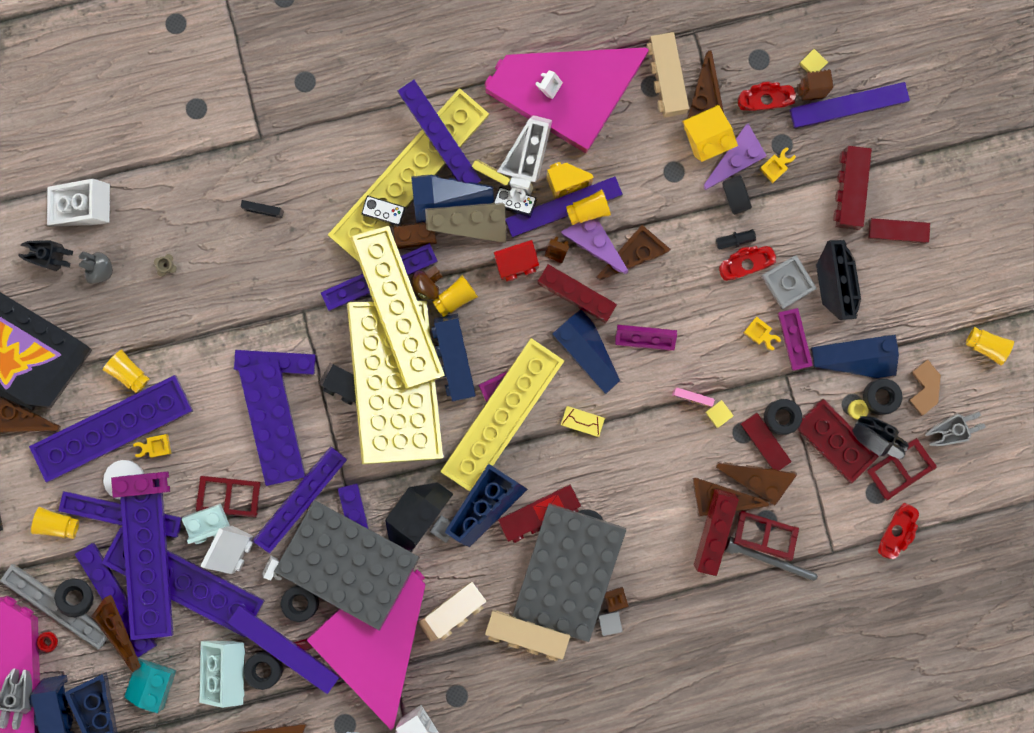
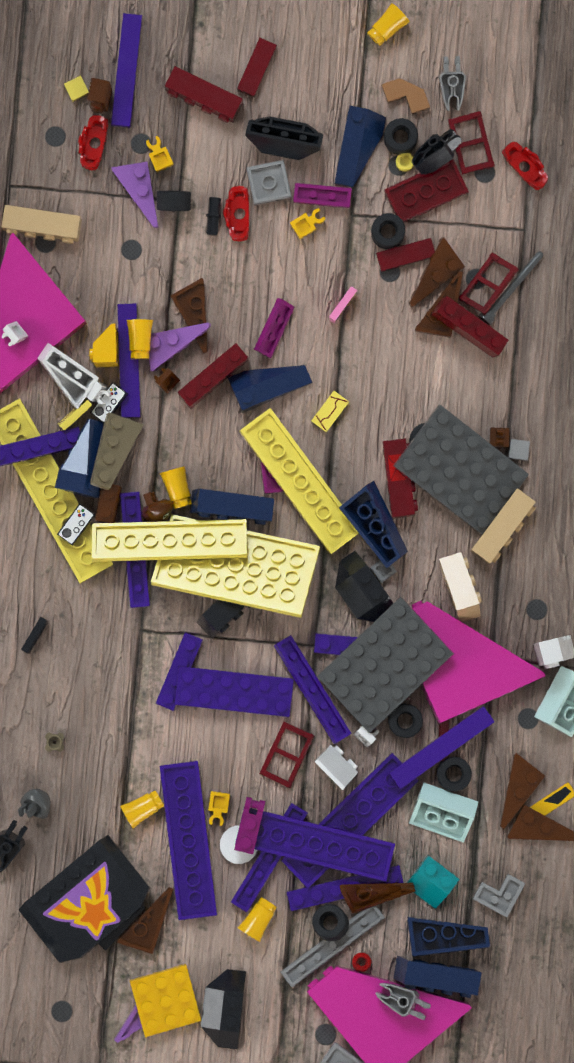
camera: 65 degrees left, 0 degrees up
(205, 523) = (305, 782): light aqua bracket -> none
(516, 261) = (164, 420): red slope -> none
(707, 90) = (77, 197): reddish brown wing -> none
(709, 133) = (109, 205): yellow slope -> none
(719, 414) = (365, 287): light yellow tile -> none

